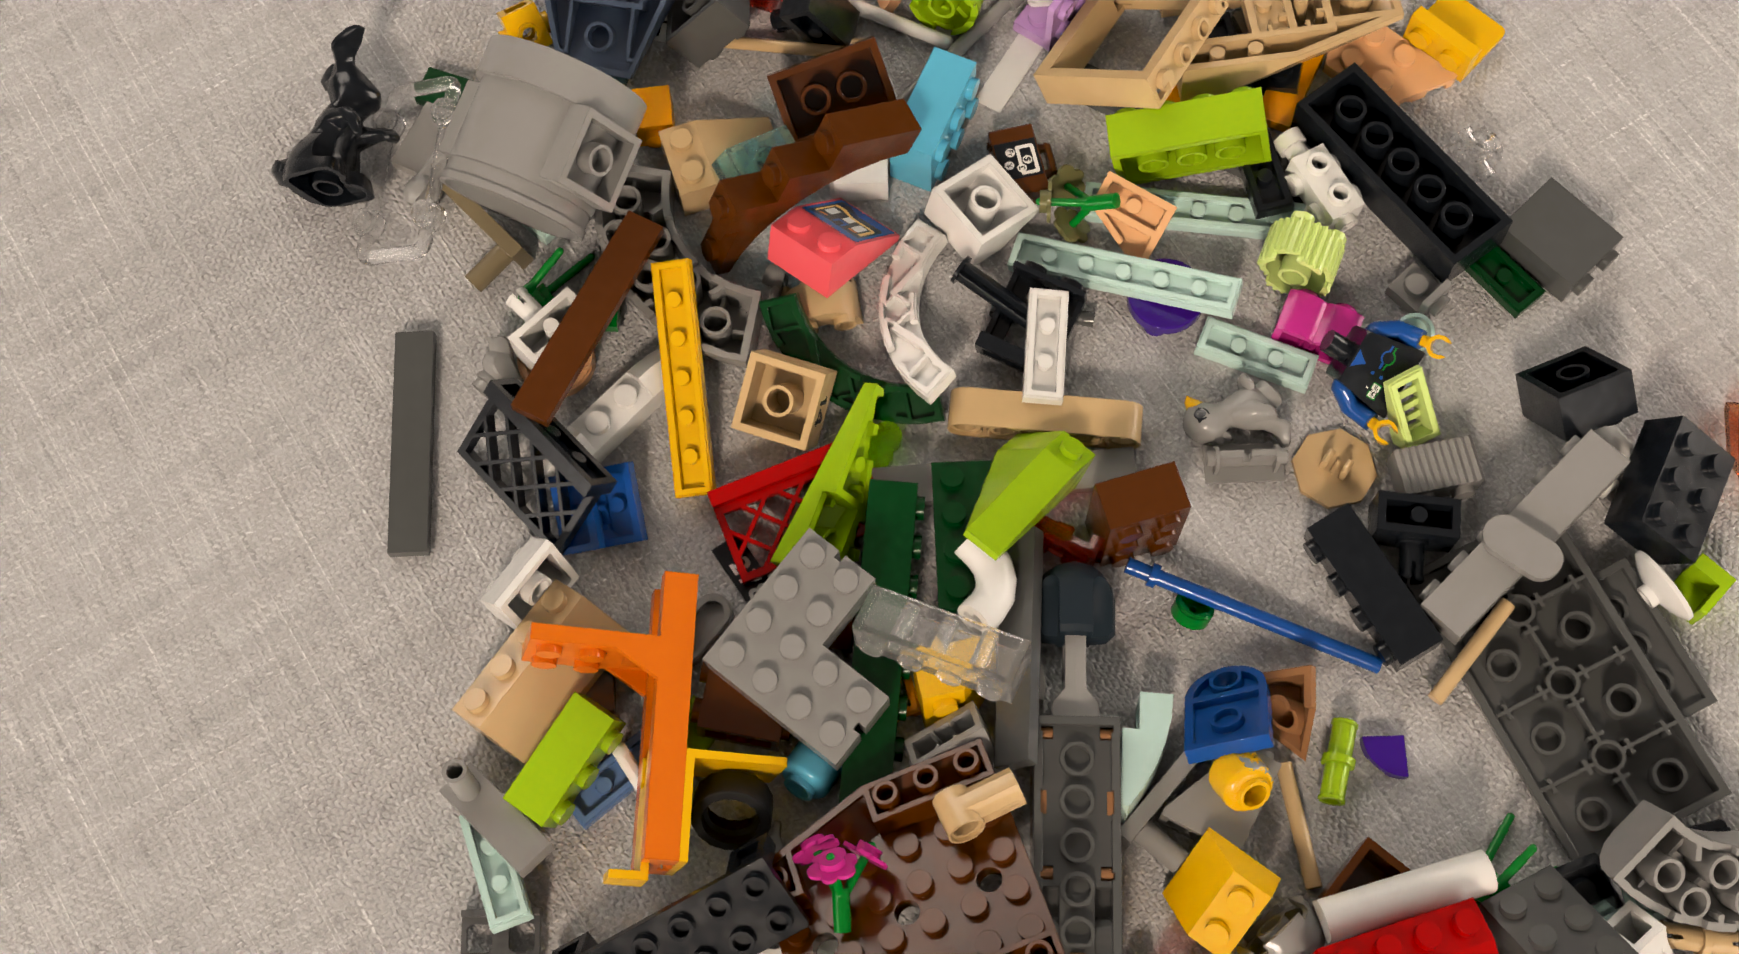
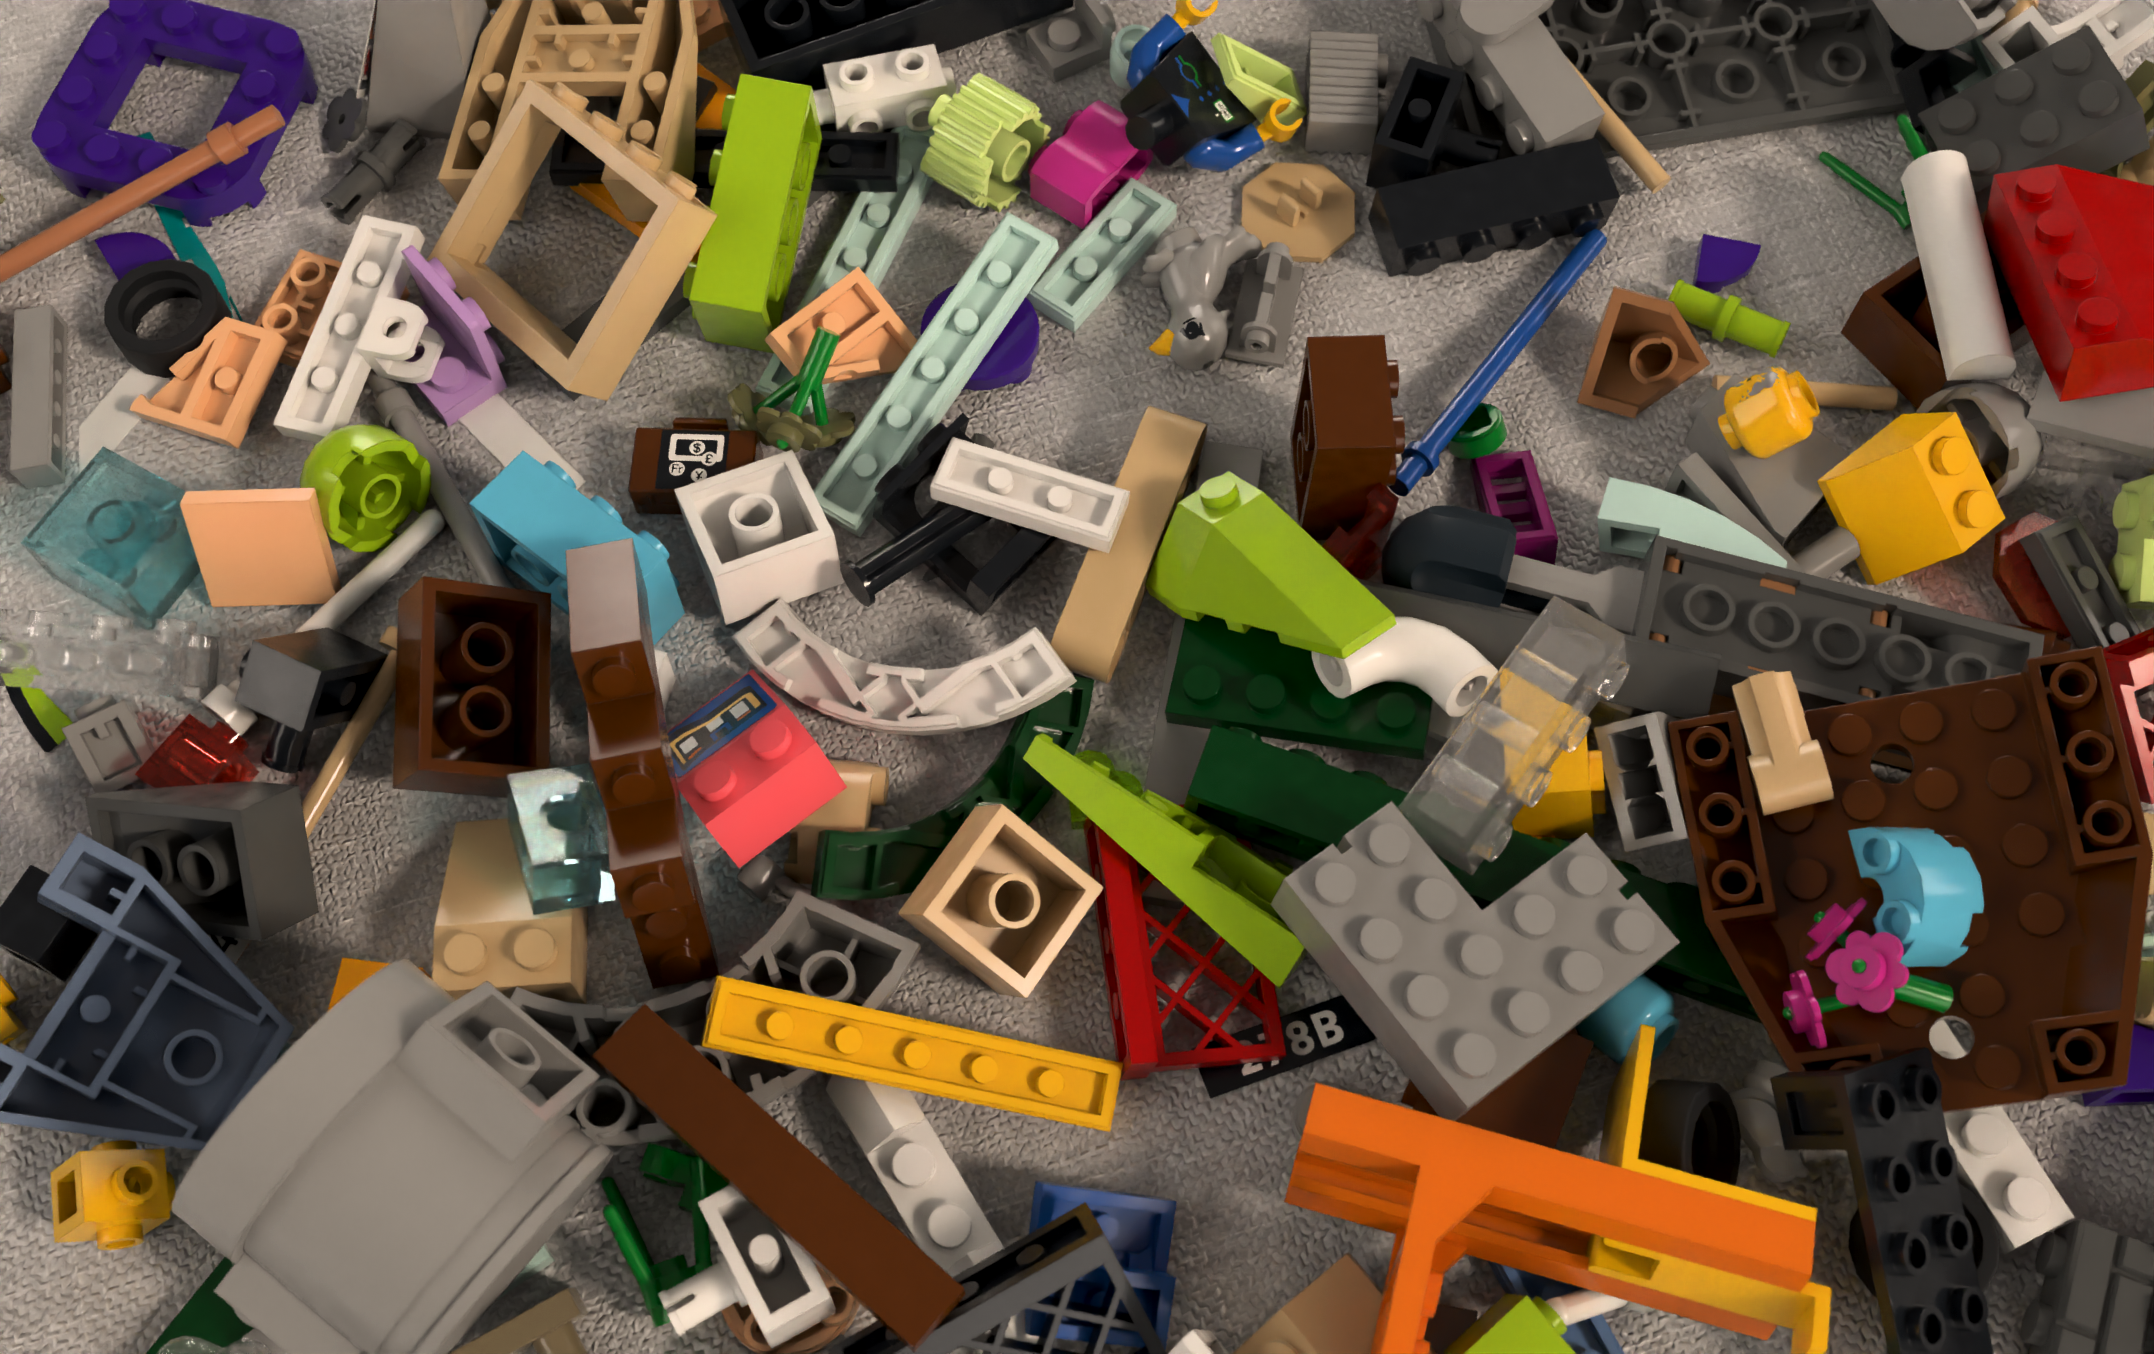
camera: 80 degrees left, 5 degrees down
(898, 896) = (1925, 889): none -> medium azure cylinder
(1122, 661) = (1536, 539): none -> magenta slope
(1227, 717) = (1664, 410): blue tile -> none

